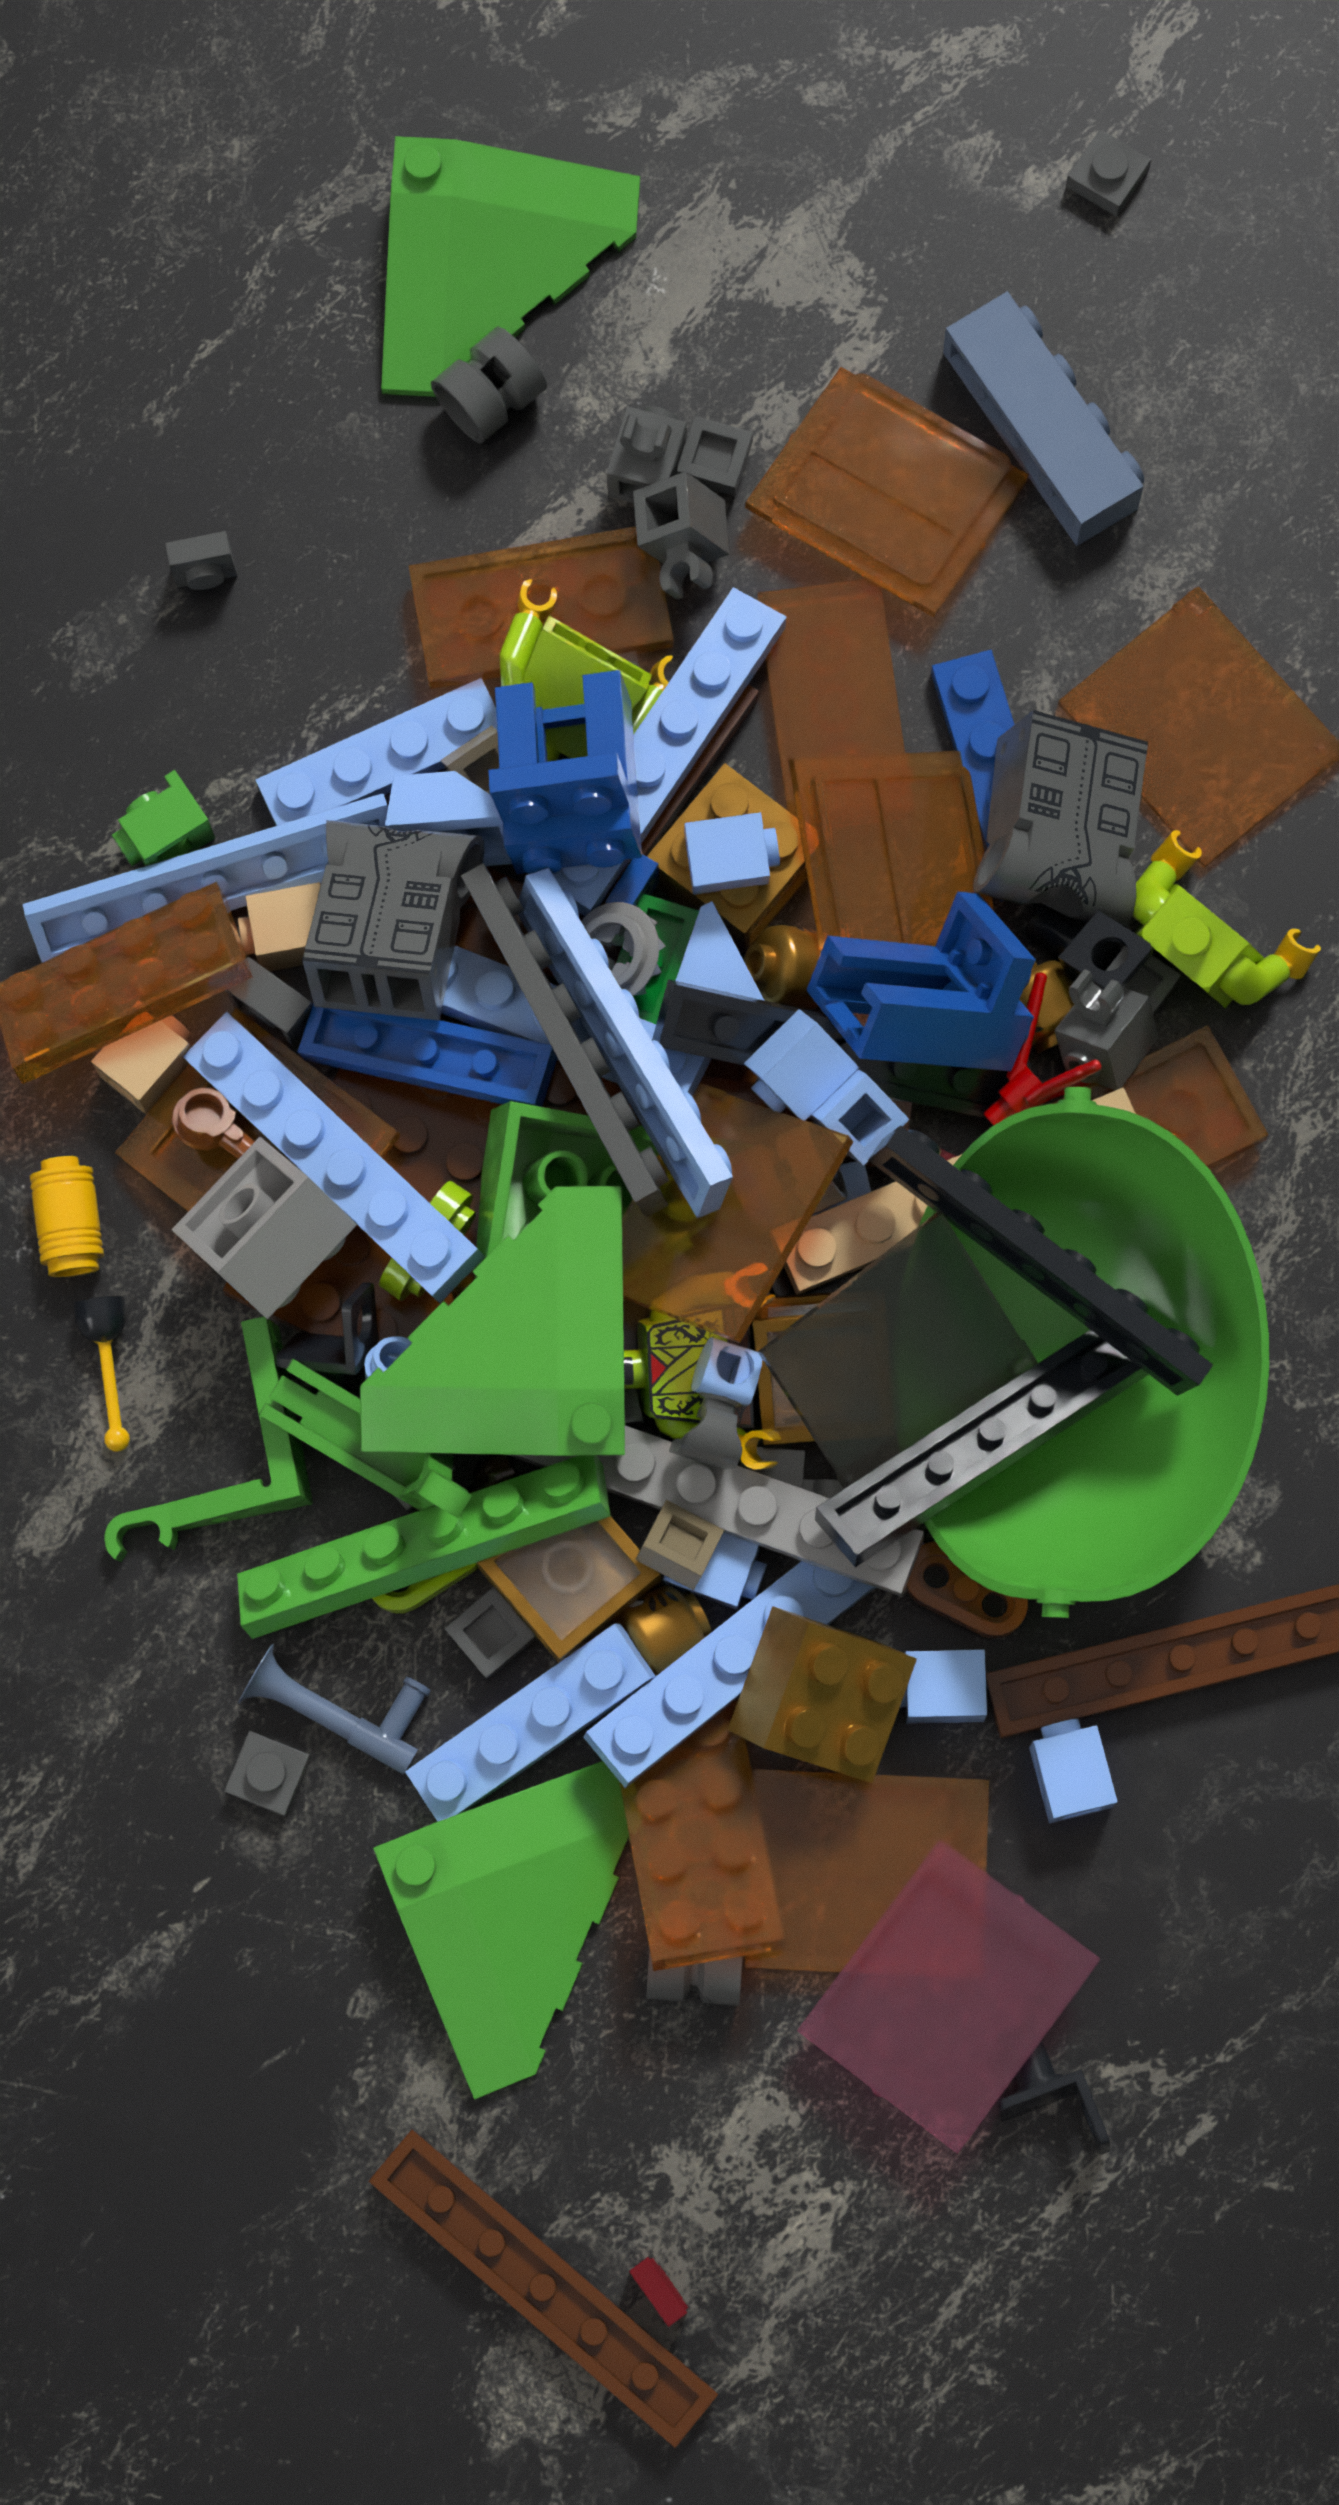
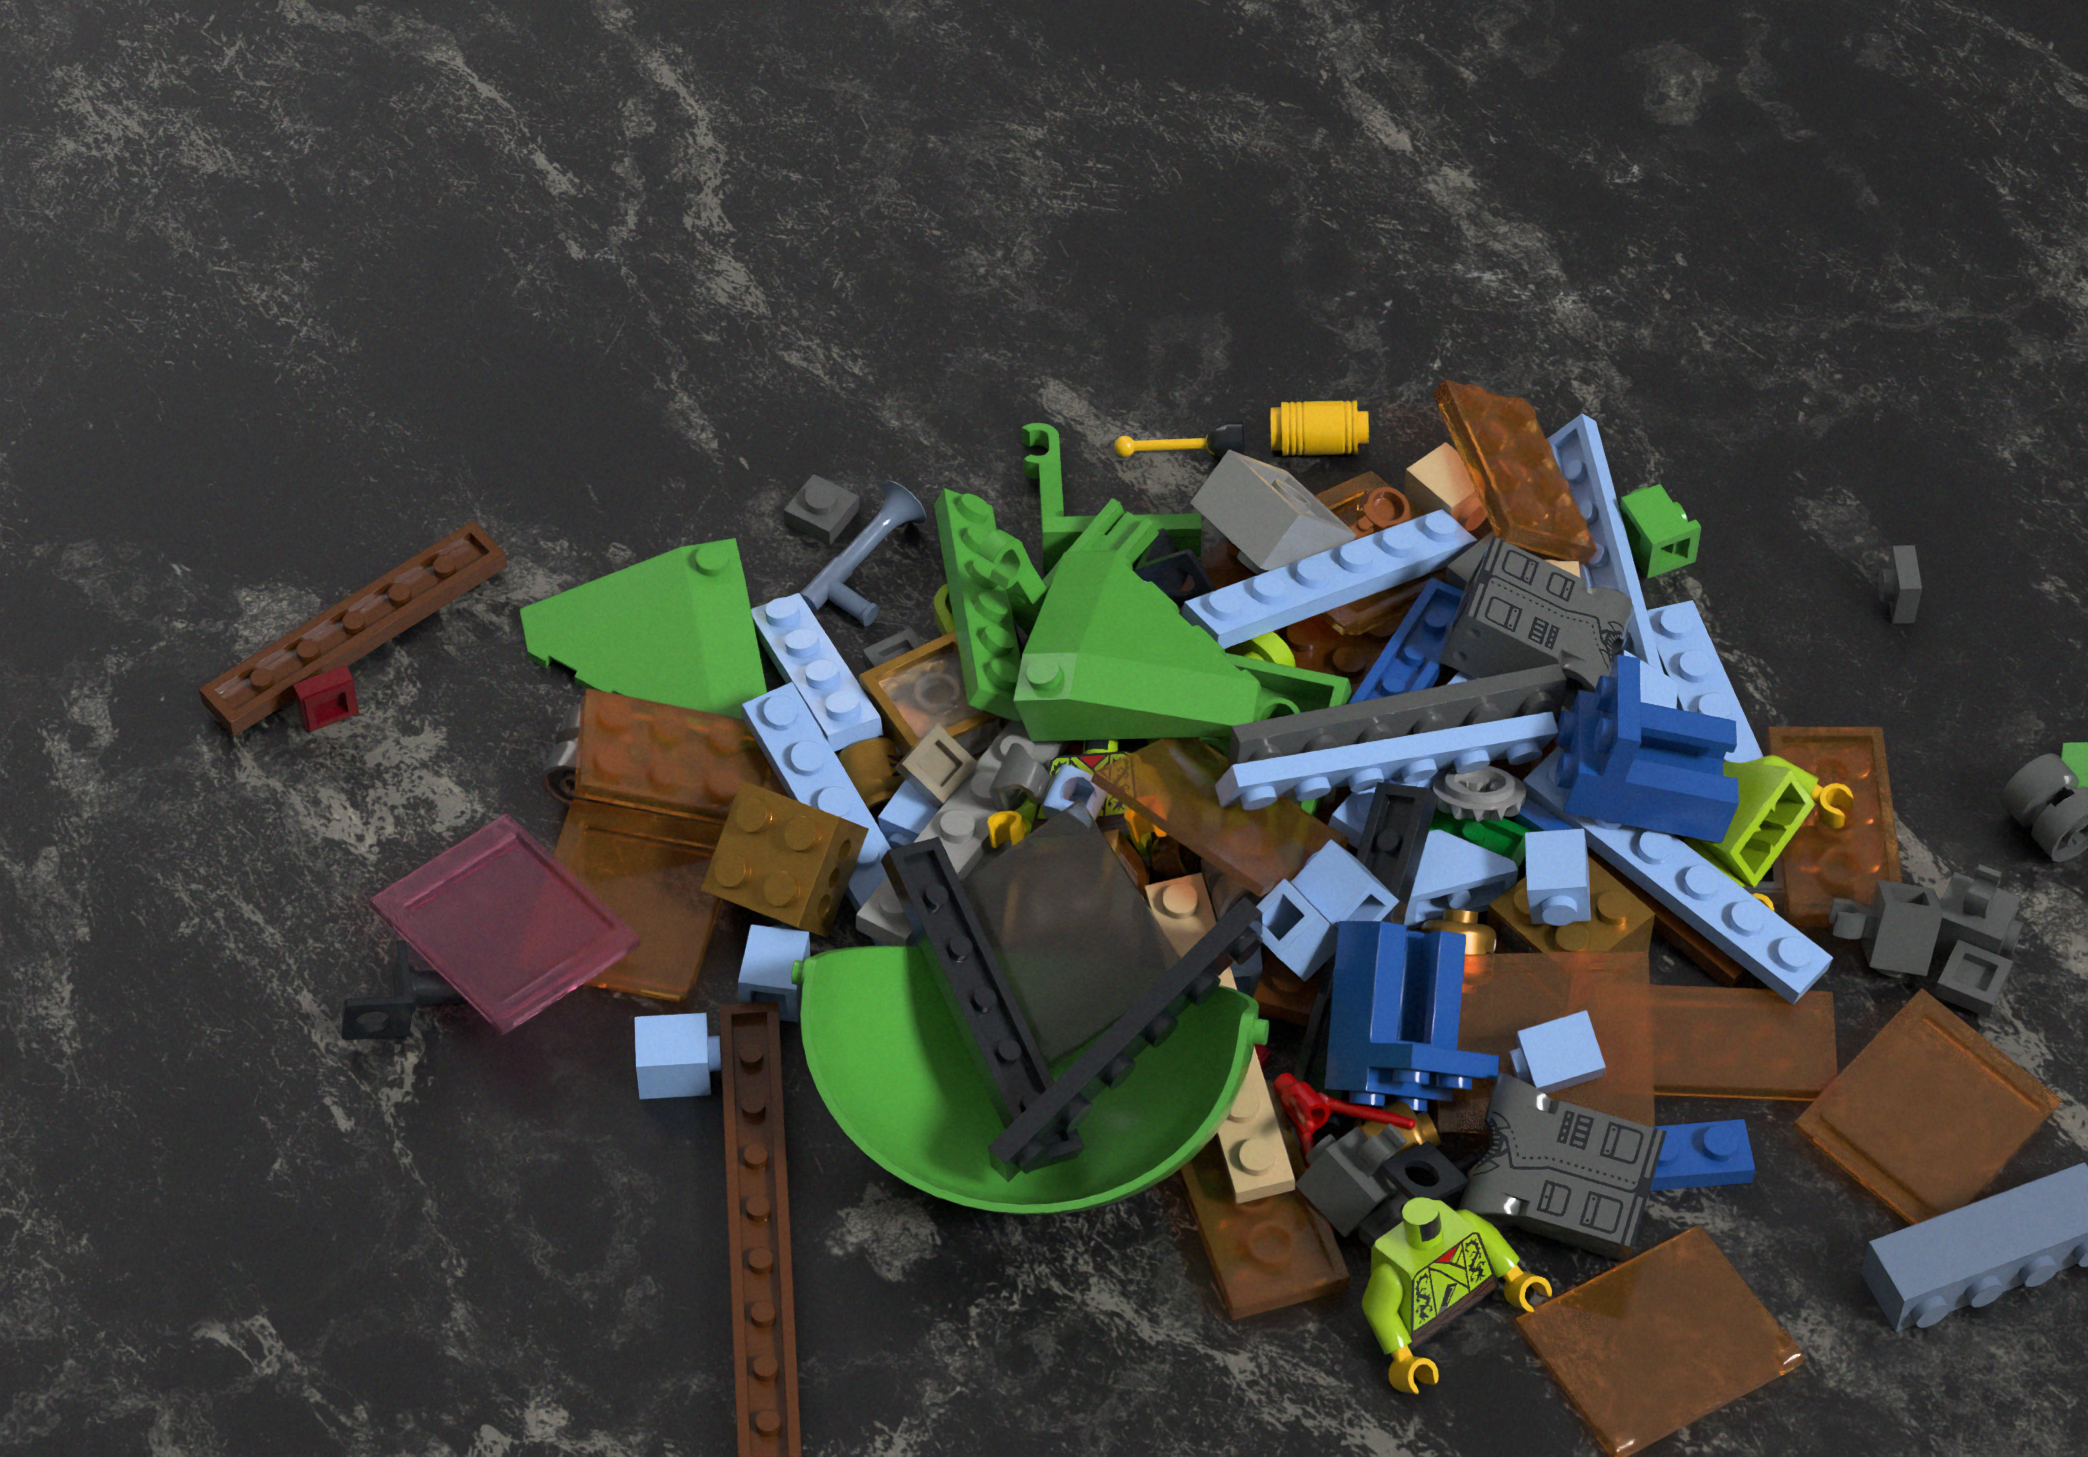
camera: 95 degrees right, 25 degrees down
(933, 837) = (1558, 1054): none -> light blue brick

